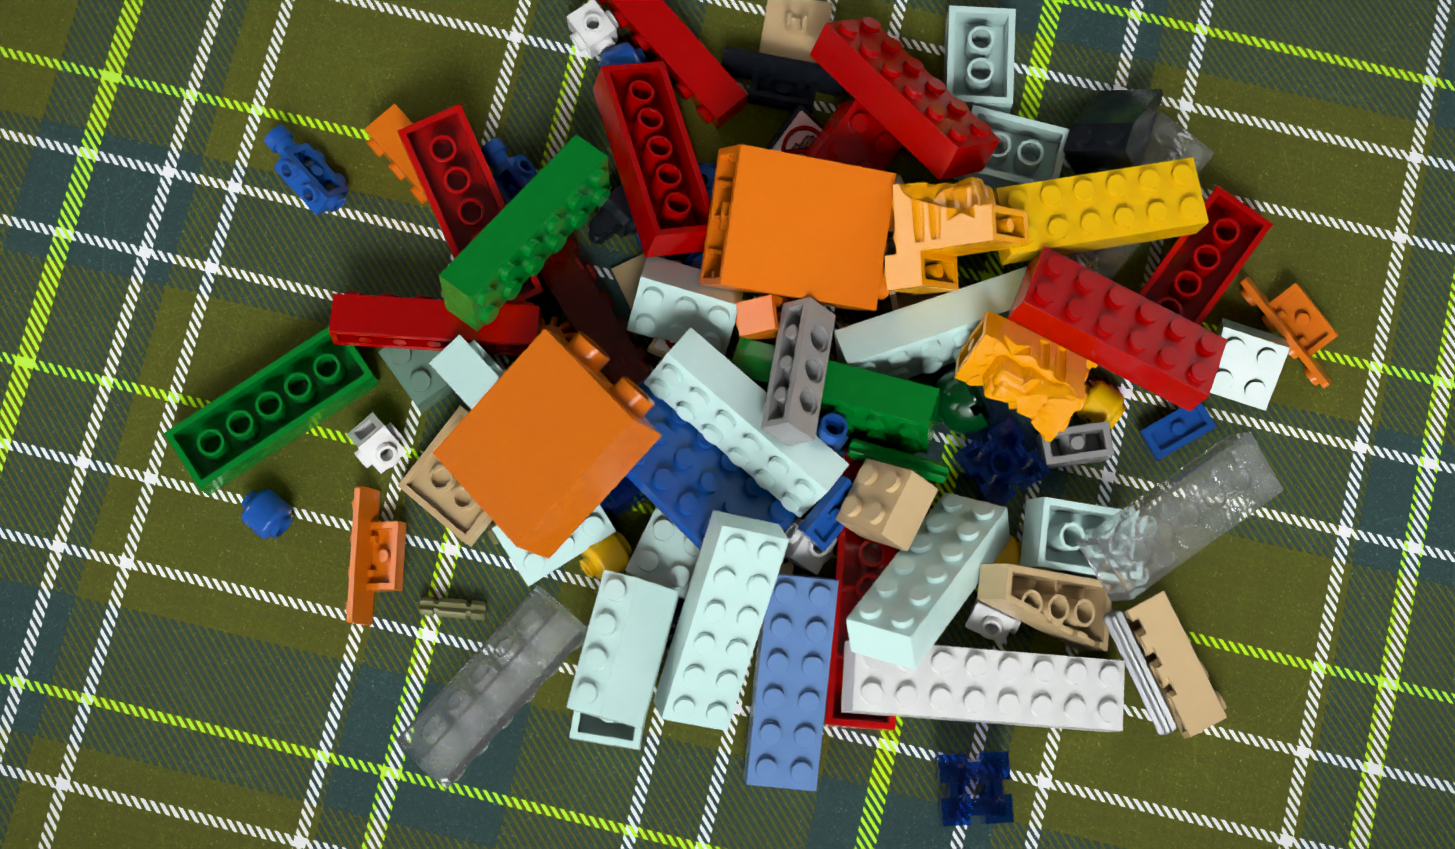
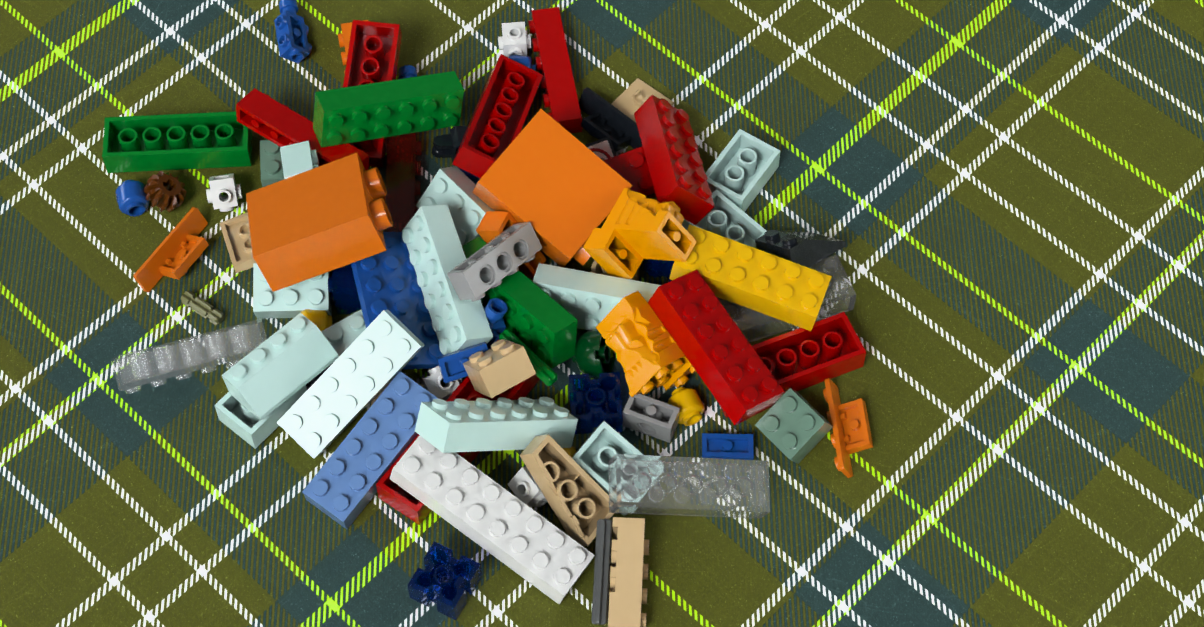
camera: 30 degrees right, 20 degrees down
(304, 485) = (165, 191): none -> reddish brown gear

